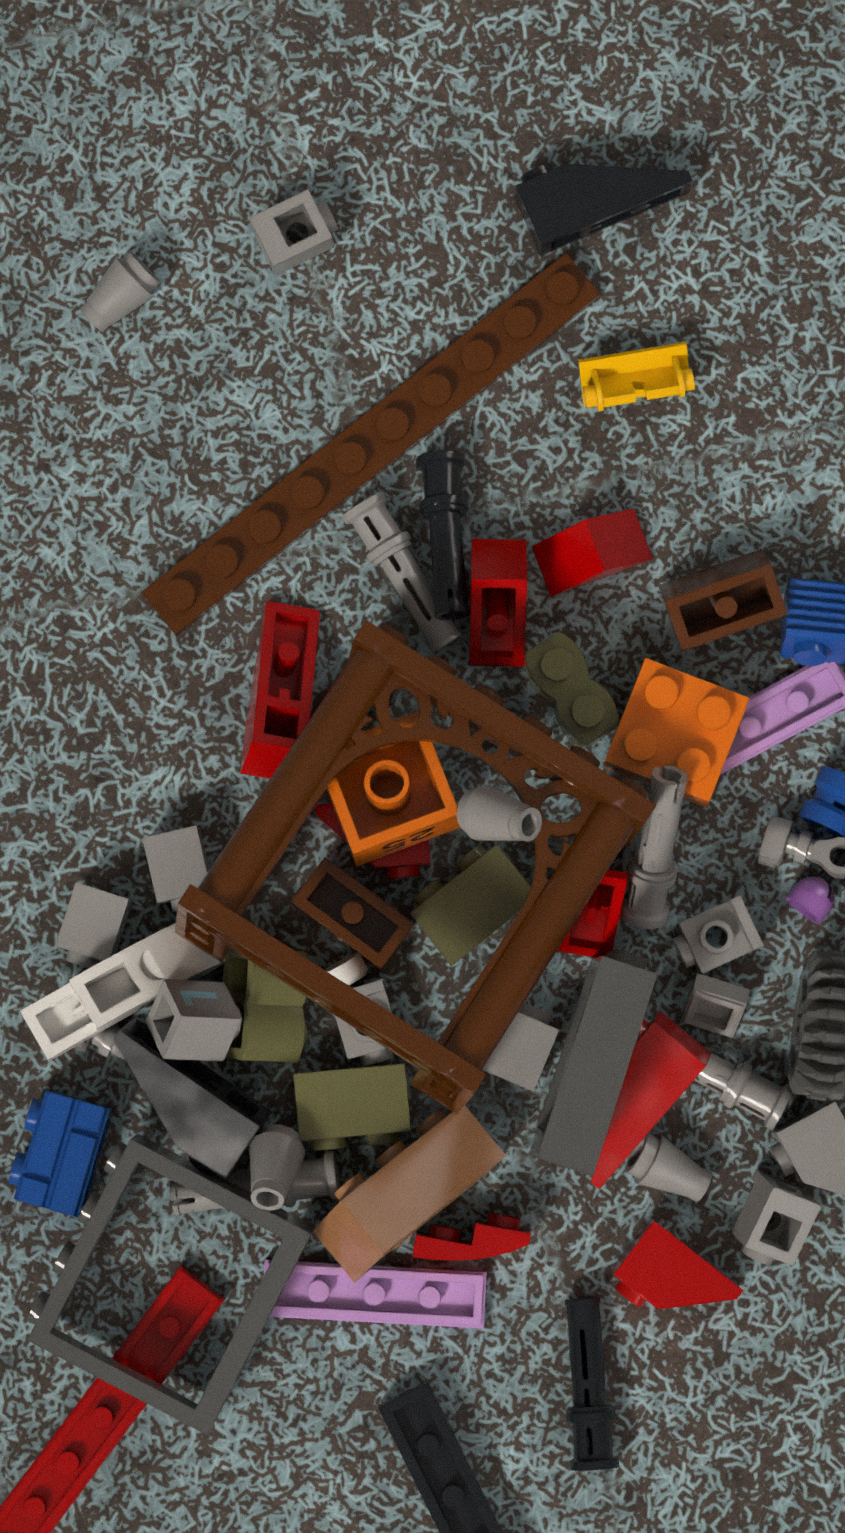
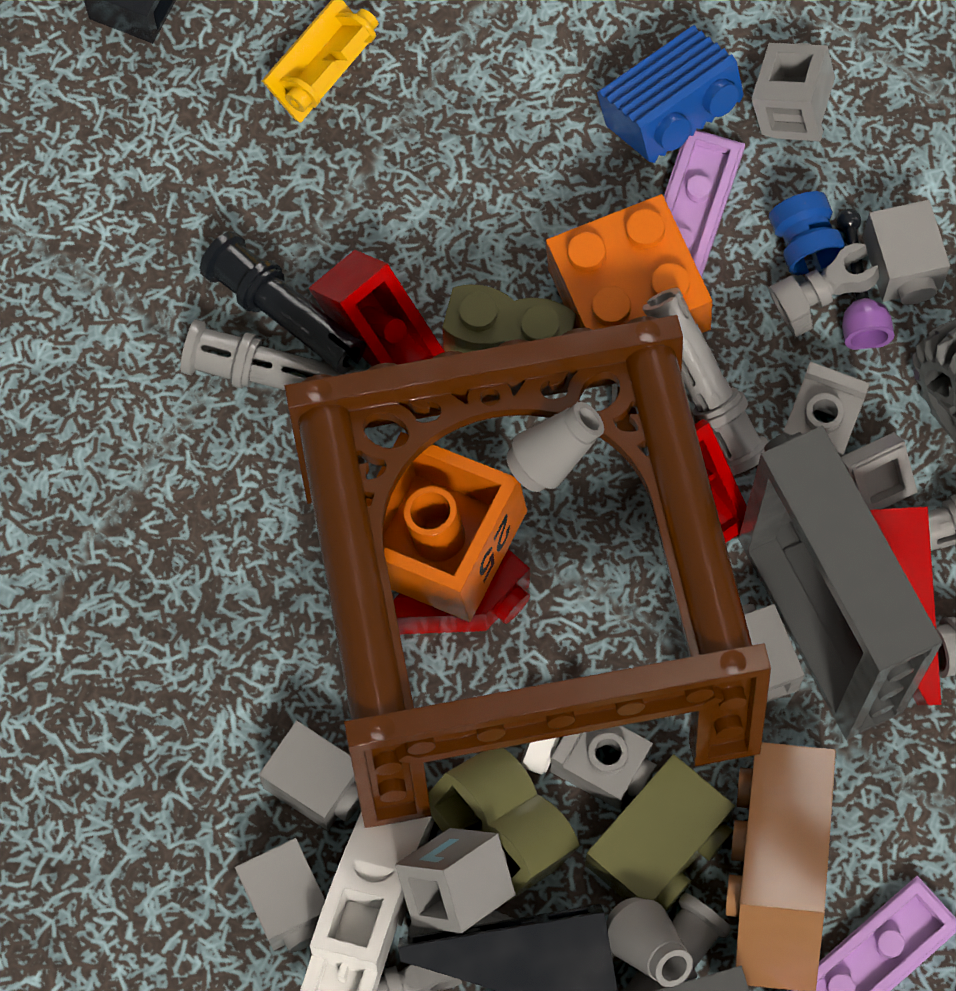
camera: 45 degrees left, 15 degrees down
(280, 686) = (264, 553): red slope -> none
(353, 913) = (502, 660): reddish brown brick -> none
(371, 444) = (148, 310): reddish brown plate -> none
(472, 903) = (597, 576): olive brick -> none
(489, 1239) = (886, 844): red slope -> none
(591, 551) = (416, 220): red slope -> none
(722, 599) = (561, 154): reddish brown brick -> none

